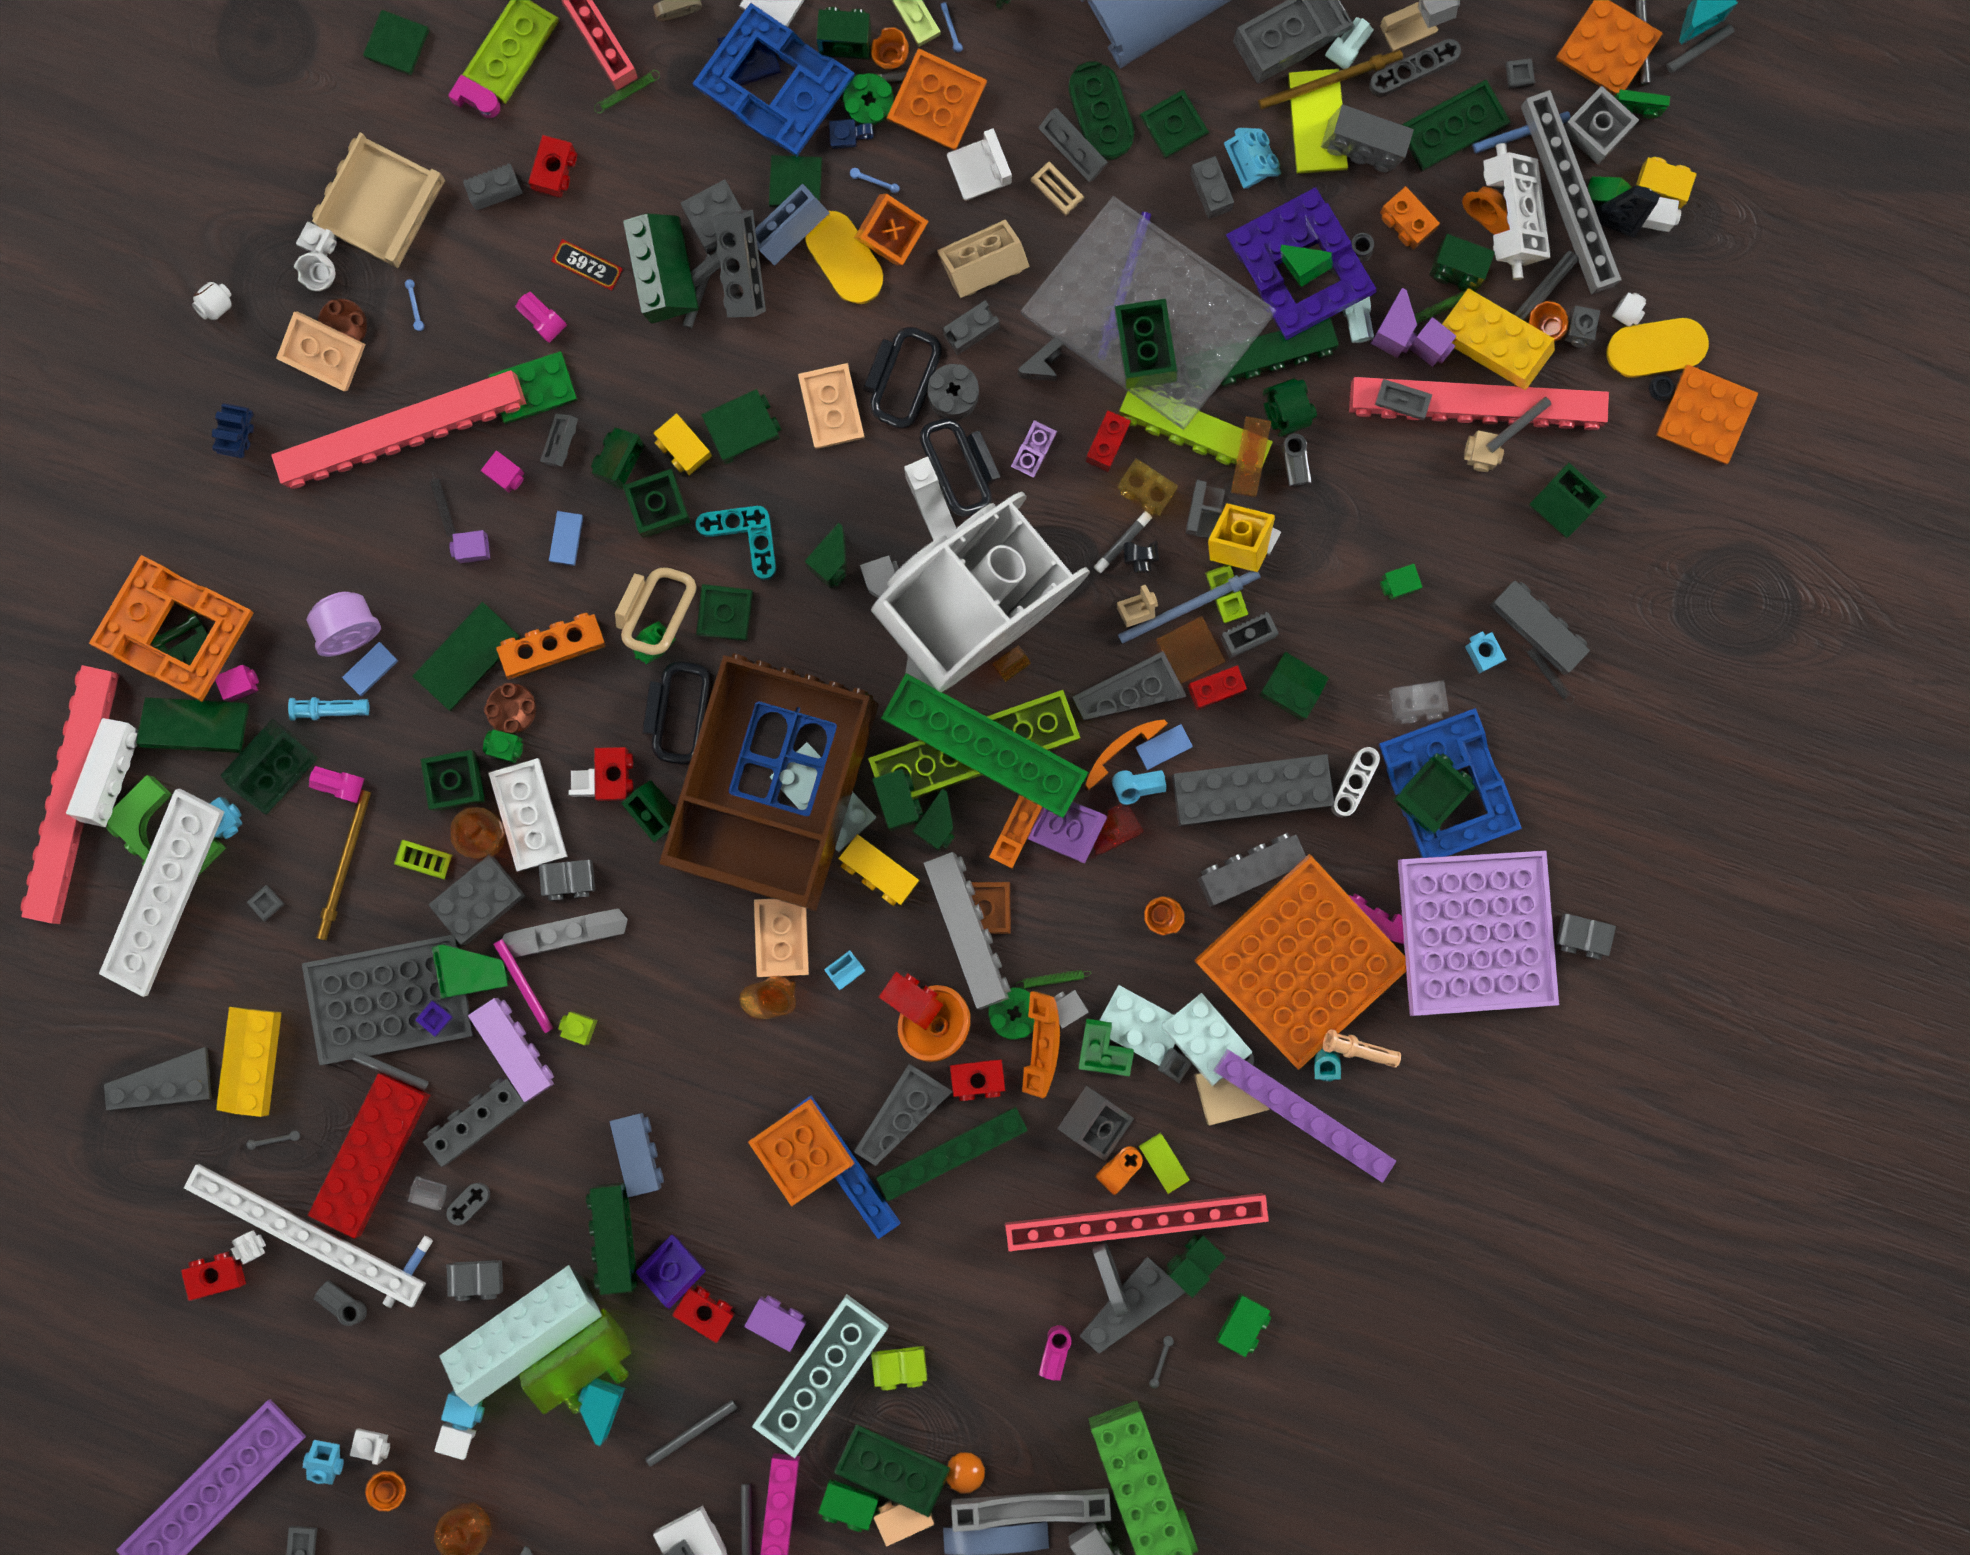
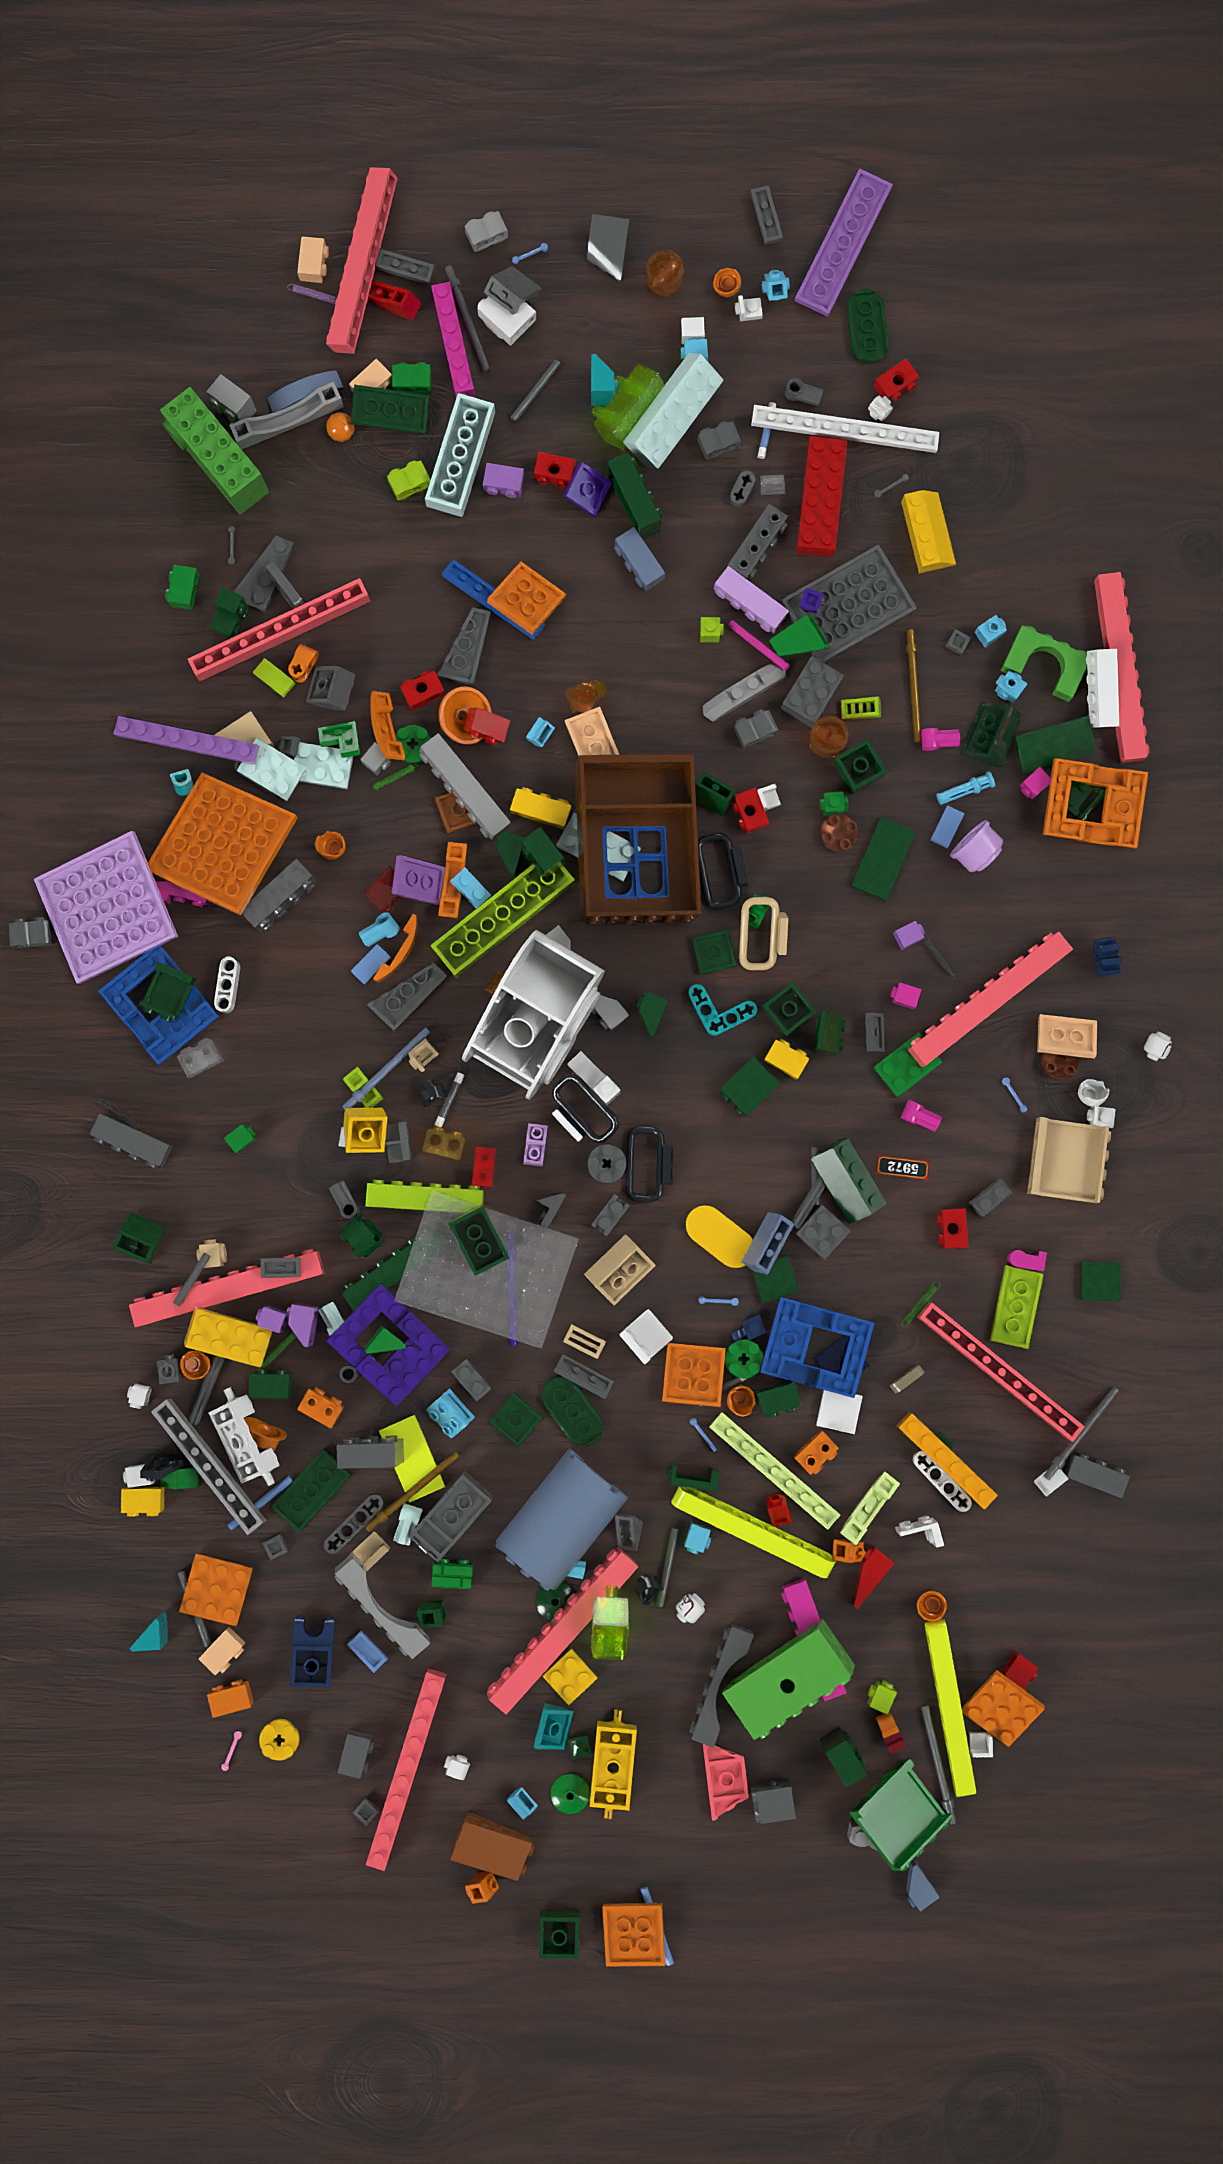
camera: 160 degrees right, 0 degrees up
(161, 892) = (1030, 620): white plate -> none
(168, 1082) = (975, 500): dark grey wing -> none
(217, 901) = (991, 630): none -> medium azure brick
(223, 1367) = (867, 326): none -> dark green tile
(390, 1071) = (828, 557): dark grey bar -> none
(528, 815) = (799, 763): white plate -> none
(541, 658) = (847, 861): orange brick -> none
(566, 538) = (844, 965): medium blue tile -> none
(745, 251) = (791, 1200): dark grey brick -> none
(831, 406) = (690, 1124): light nougat plate -> none
(891, 229) = (692, 1265): orange brick -> none
(951, 1153) = (422, 633): dark green brick -> none
(984, 745) = (493, 913): green plate -> none
(1004, 802) = (470, 888): none -> medium azure plate
(1055, 1355) = (305, 524): dark pink piece -> none
(1191, 650) = (375, 1039): clear orange tile -> none
(1217, 687) = (346, 1017): red brick -> none
(1249, 635) = (336, 1061): dark grey brick -> none
(1250, 456) = (376, 1187): clear orange plate -> none
(1252, 790) = (297, 954): dark grey brick -> none
(1294, 686) = (292, 1038): dark green slope -> none
(1351, 1047) = (169, 798): light nougat pin -> none
(1483, 663) = (157, 1105): medium azure brick -> none
(1600, 125) = (203, 1525): light grey brick -> none
(1643, 103) = (172, 1552): green plate -> none
(1657, 347) = (110, 1375): yellow tile -> none
(1661, 388) = (98, 1346): black plate -> none
(1700, 48) = (148, 1613): dark grey bar -> none
(1706, 414) = (59, 1338): orange plate -> none

